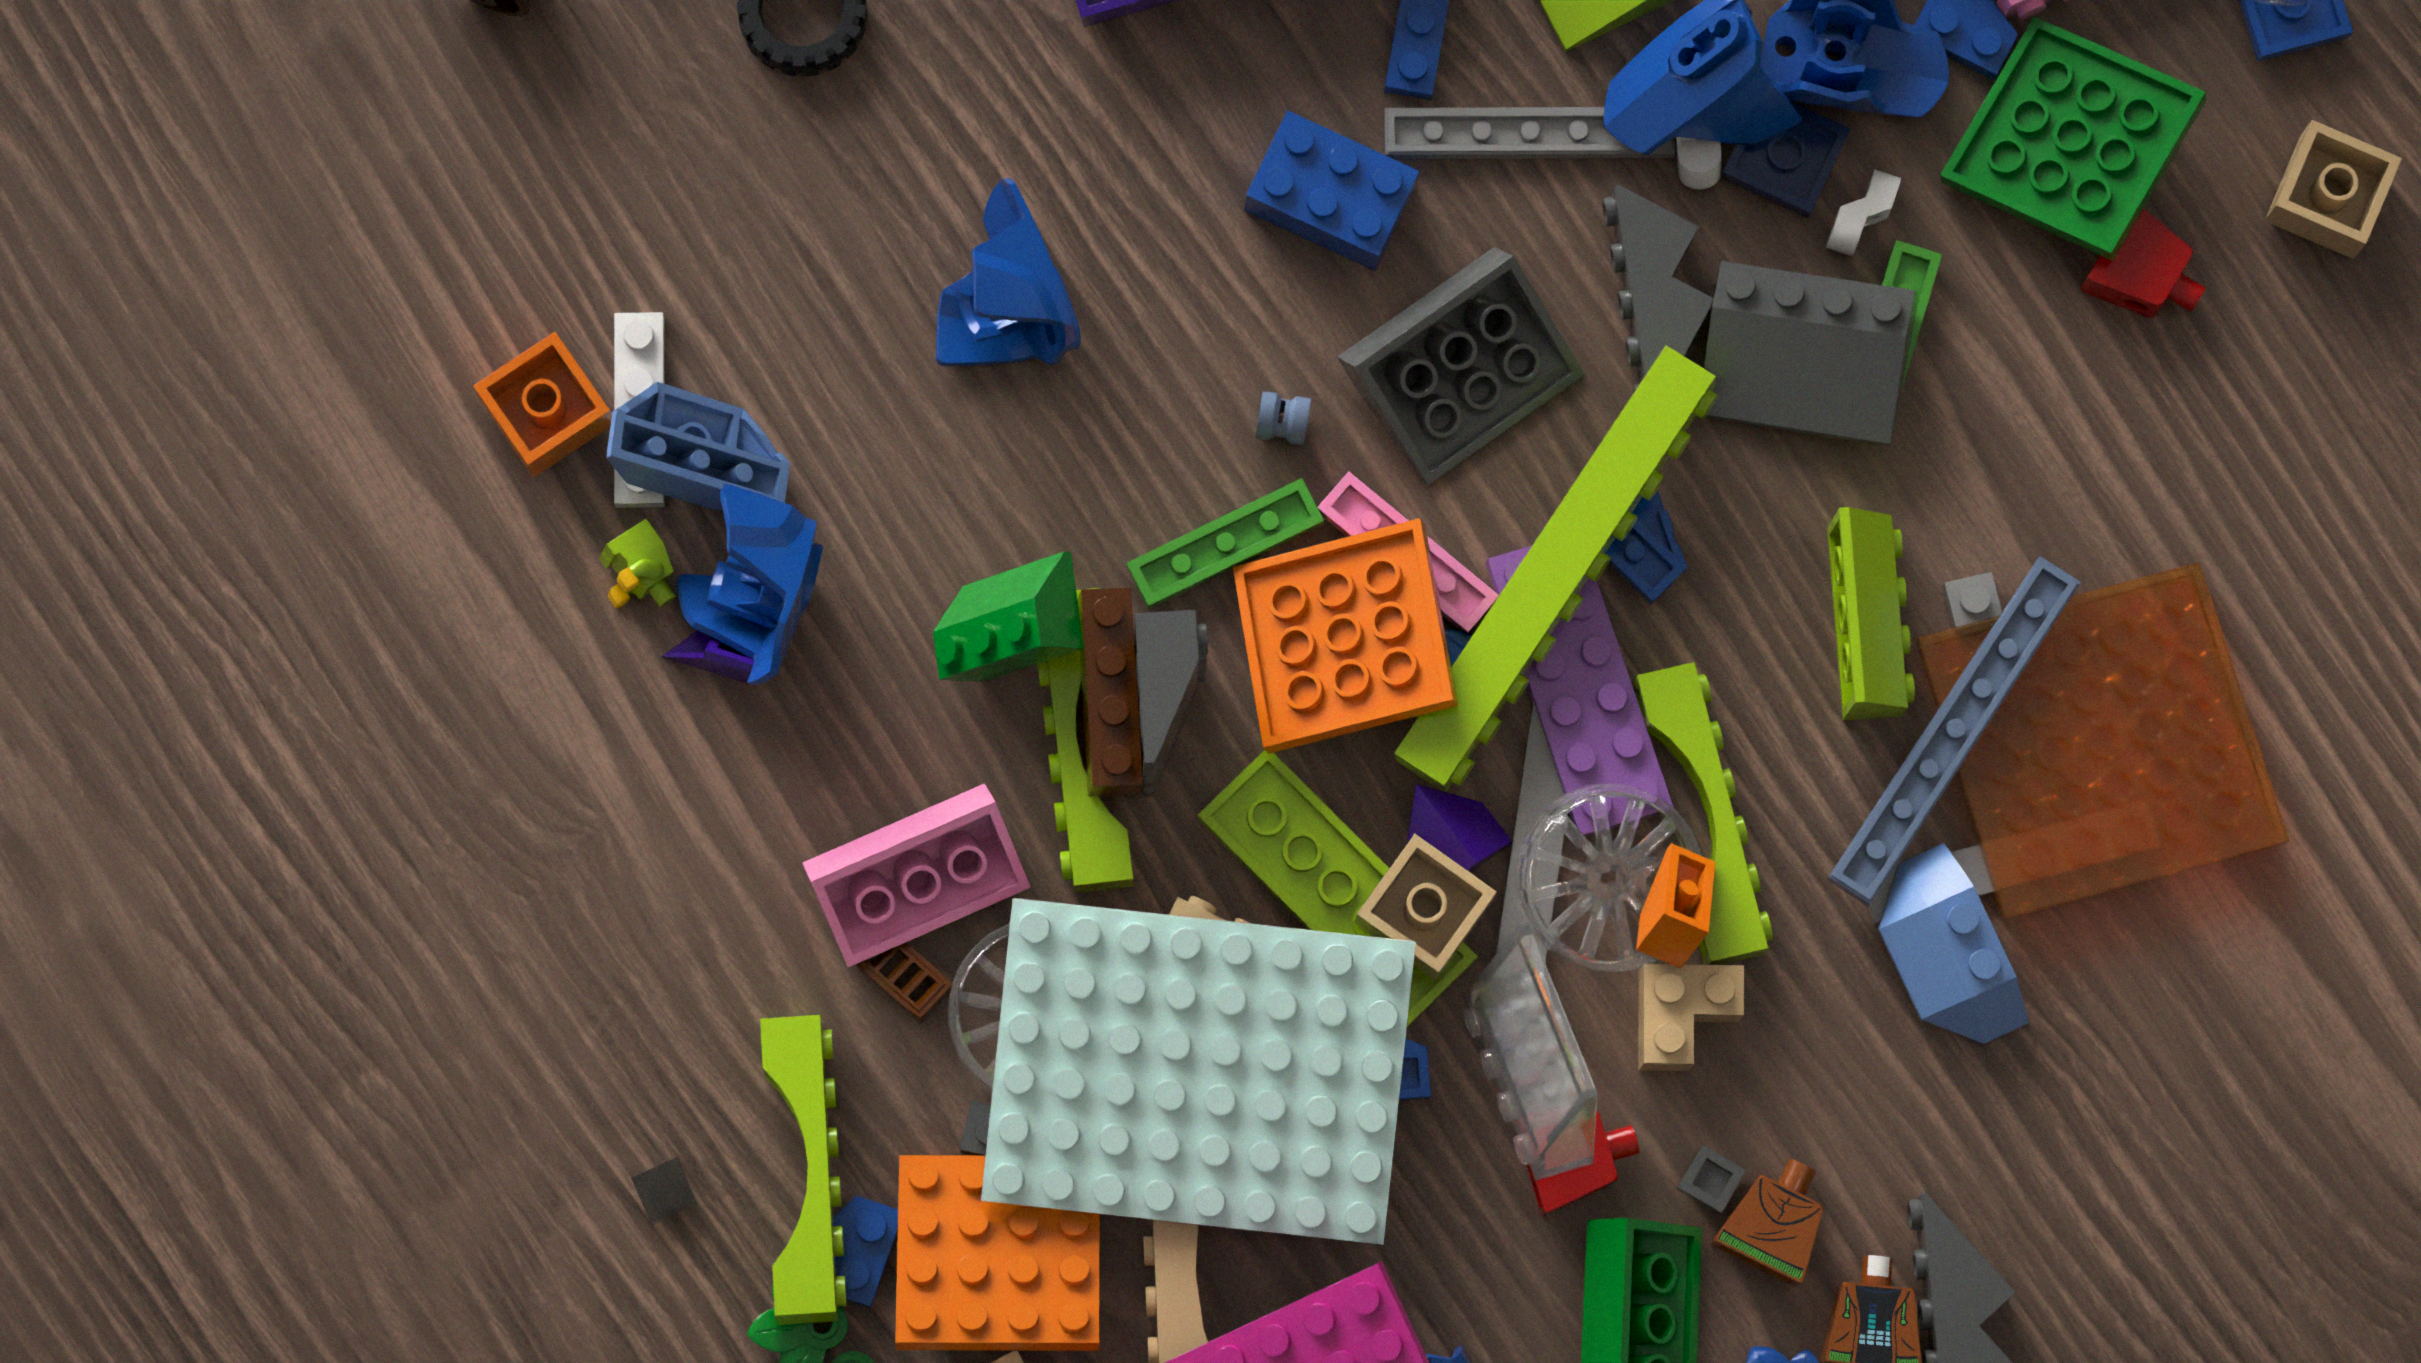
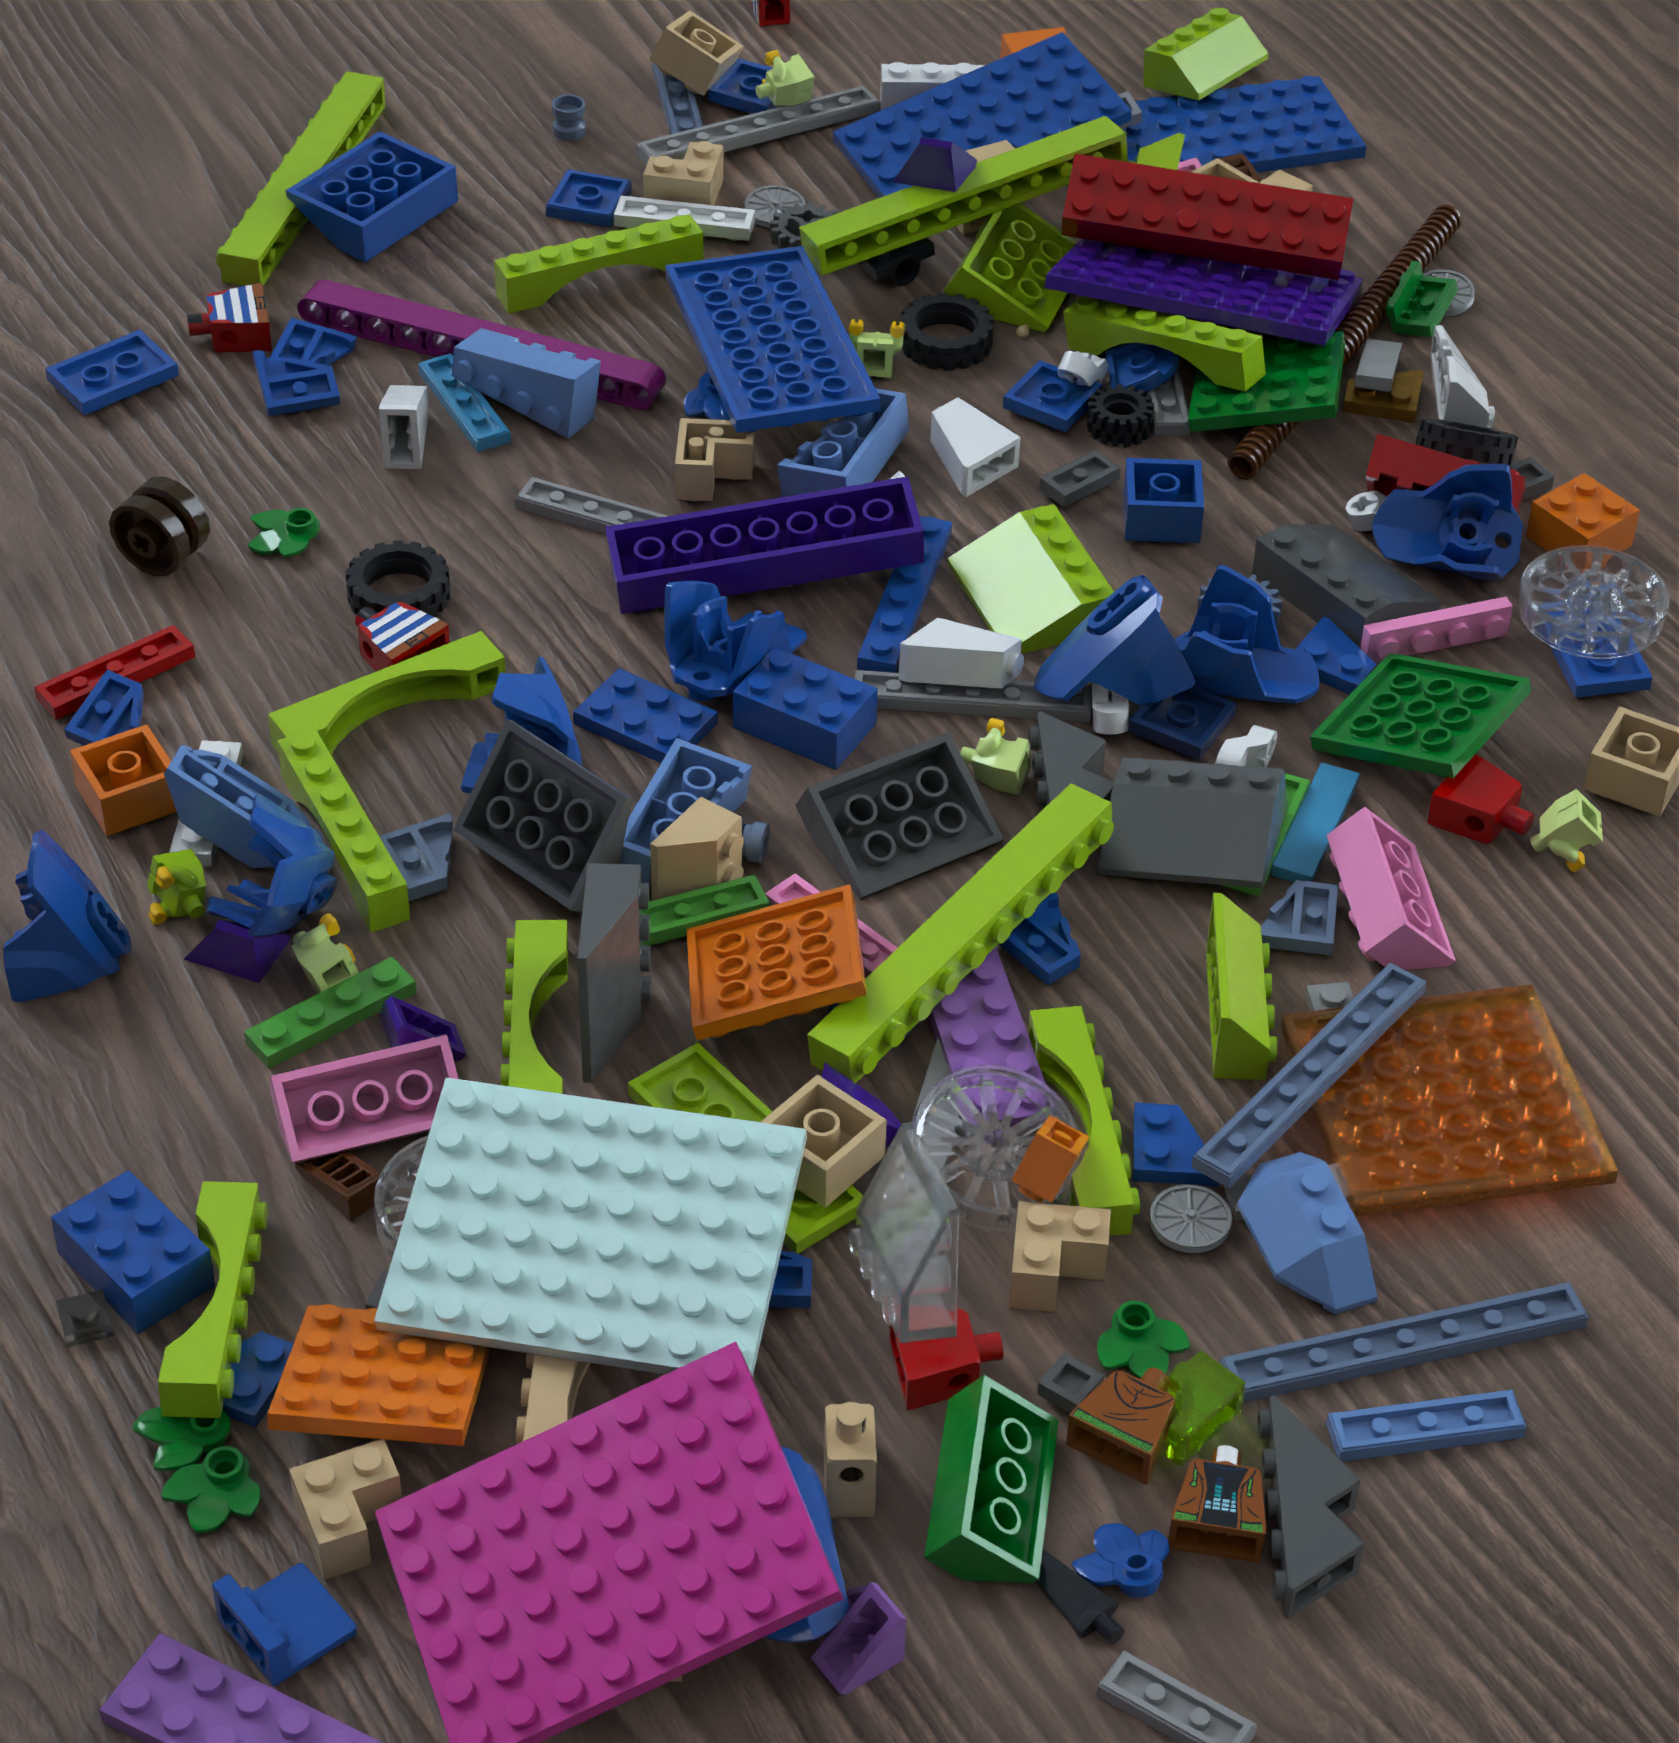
camera: 10 degrees right, 35 degrees down
(485, 204) = (135, 661): none -> red plate
(499, 290) = (108, 710): none -> blue wing
(539, 663) = (72, 930): none -> blue piece
(701, 1109) = (133, 1251): none -> blue brick
(812, 451) = (367, 866): none -> lime arch
(822, 118) = (397, 634): none -> torso
(824, 662) = (320, 958): none -> yellowish green piece
(846, 728) = (329, 1012): none -> bright green plate
(903, 164) = (453, 671): none -> lime arch
(907, 480) = (422, 854): none -> sand blue wing
(953, 758) = (410, 1024): none -> dark purple slope
(1010, 622) = (484, 930): green slope -> none
(1054, 454) = (544, 815): none -> dark grey slope
(1110, 692) = (557, 993): reddish brown brick -> none
(1138, 211) = (643, 715): none -> blue plate
(1201, 382) = (679, 782): none -> medium blue wedge
(1228, 92) = (709, 649): none -> blue piece
(1238, 469) = (697, 850): none -> tan slope
(1493, 1310) = (847, 1443): none -> tan torso
(1513, 88) = (960, 656): none -> white slope
(1568, 260) = (999, 761): none -> yellowish green piece
(1784, 1119) = (1141, 1345): none -> green plate
(1794, 832) = (1165, 1146): none -> blue wing
(1826, 935) = (1190, 1218): none -> light grey wheel
(1849, 1190) = (1205, 1403): none -> clear neon green arch
(1937, 478) = (1303, 919): none -> sand blue wing
(1950, 313) = (1317, 816): none -> dark azure tile
(2037, 432) = (1388, 894): none -> bright pink slope
(2057, 1080) = (1407, 1341): none -> sand blue tile
(2080, 1188) = (1425, 1425): none -> medium blue tile
(2246, 313) = (1568, 827): none -> yellowish green piece

